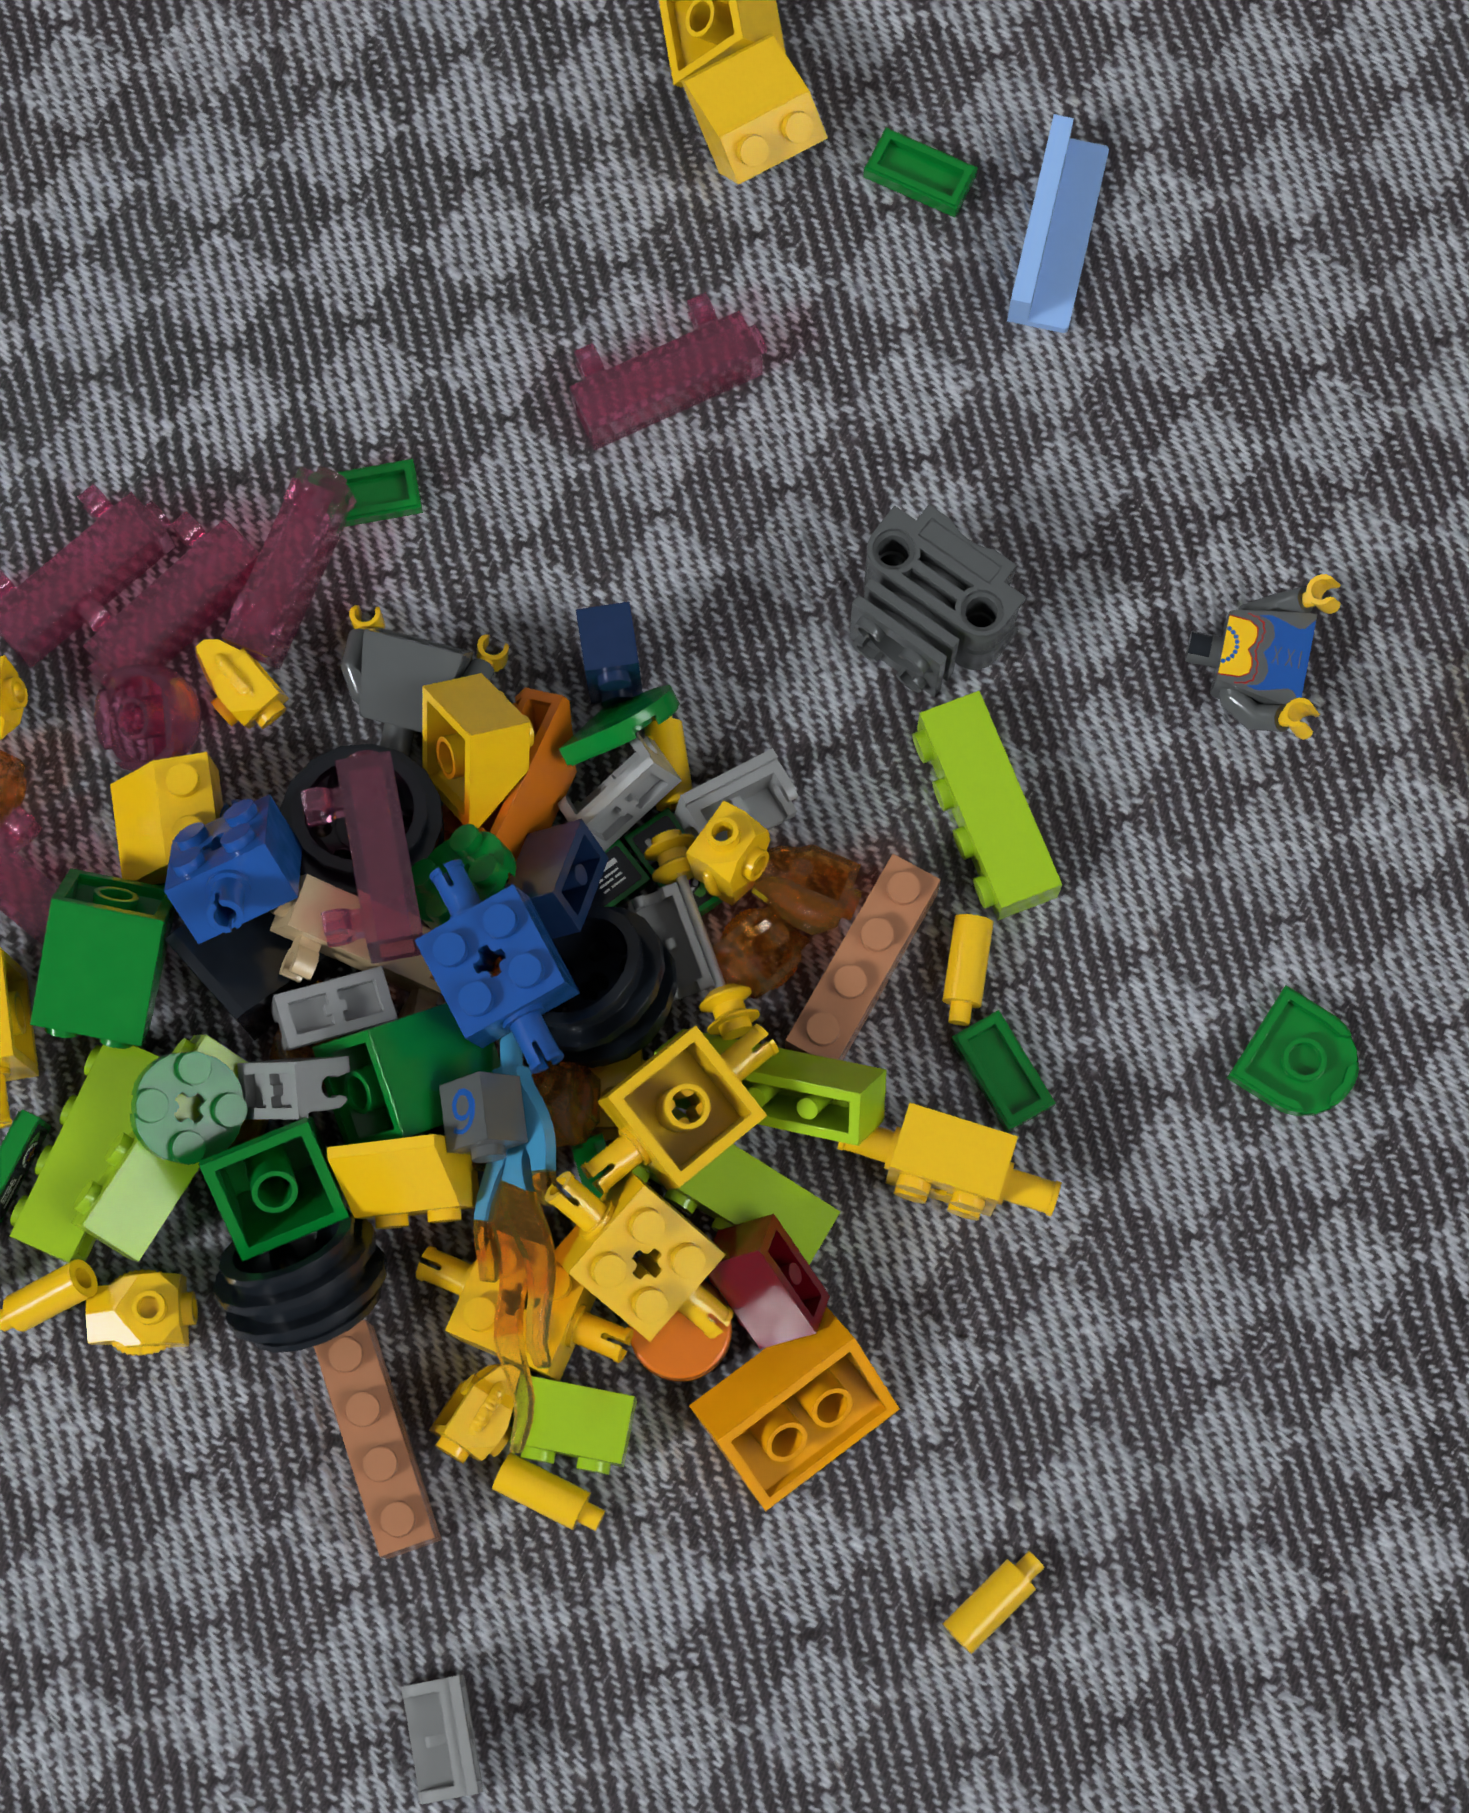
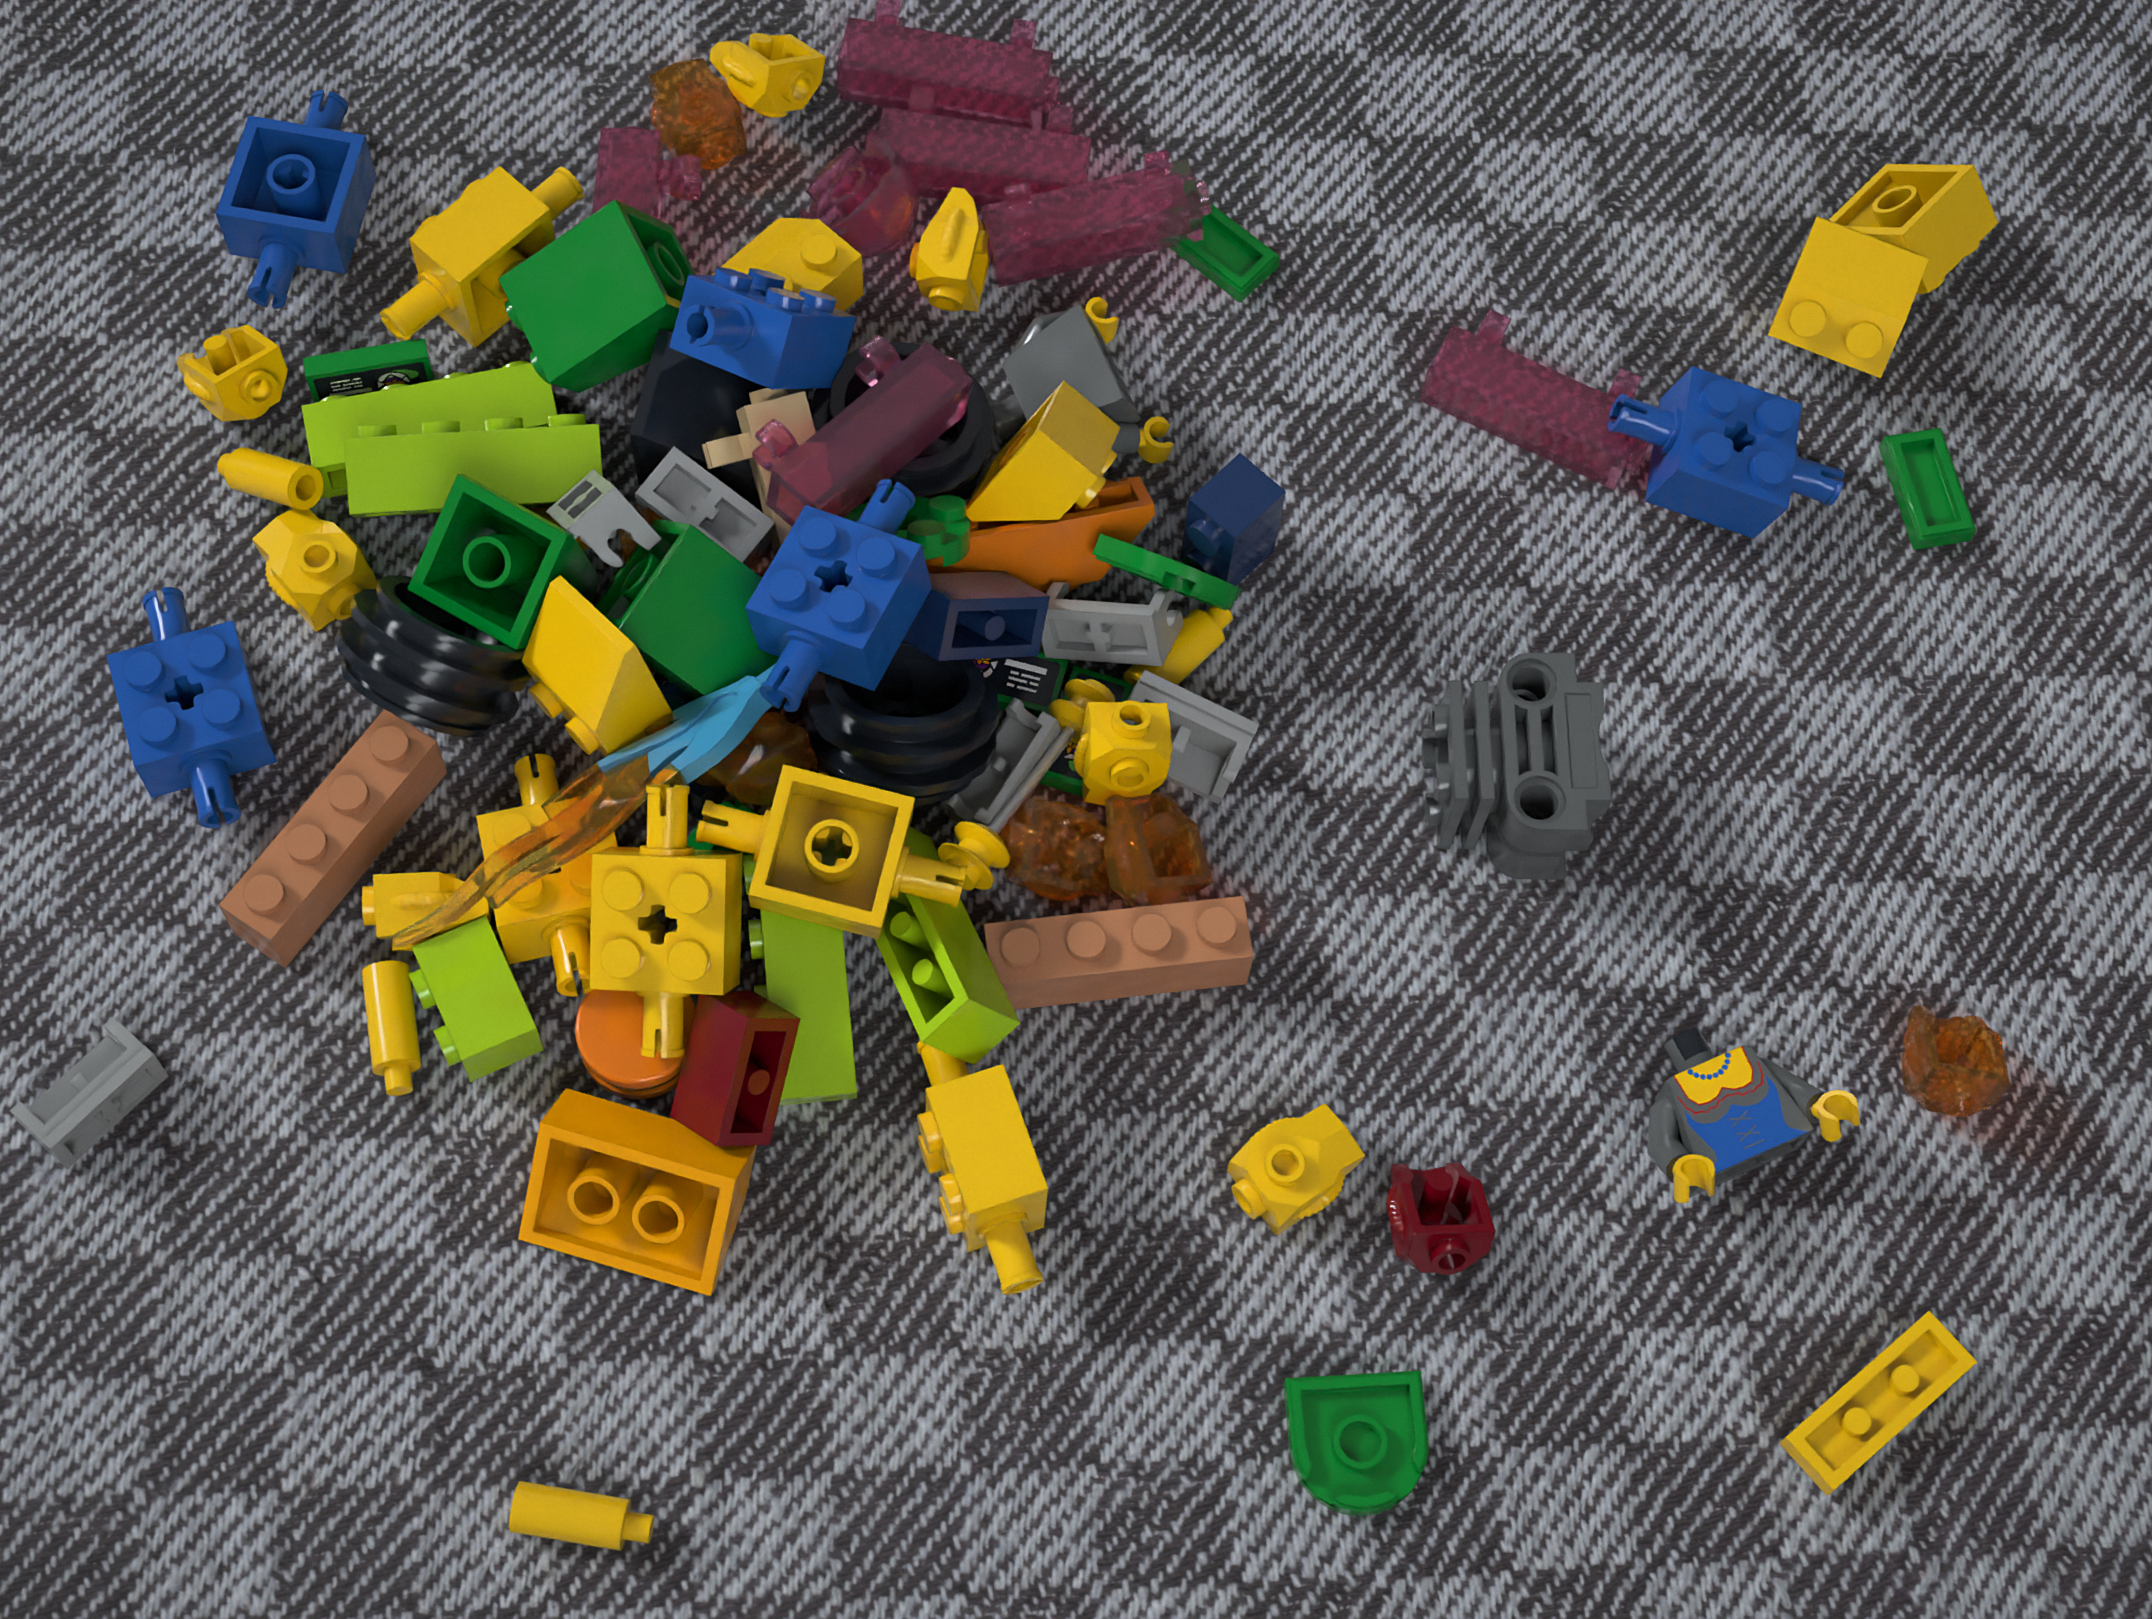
camera: 45 degrees right, 10 degrees down
(154, 1106) = (548, 429): plate -> none
(158, 1481) = (191, 708): none -> blue brick
(483, 1115) = (691, 685): dark grey brick -> none
(802, 284) = (1724, 452): none -> blue brick
(967, 966) = (1195, 1053): yellow cylinder -> none
(987, 806) = (1366, 961): lime brick -> none
(1003, 1071) = (1119, 1161): green tile -> none
(1058, 230) = (1982, 639): light blue panel -> none
(1093, 962) = (1293, 1167): none -> yellow hand
(1196, 895) = (1438, 1218): none -> dark red hand
(1331, 490) = (1952, 1063): none -> clear orange hand

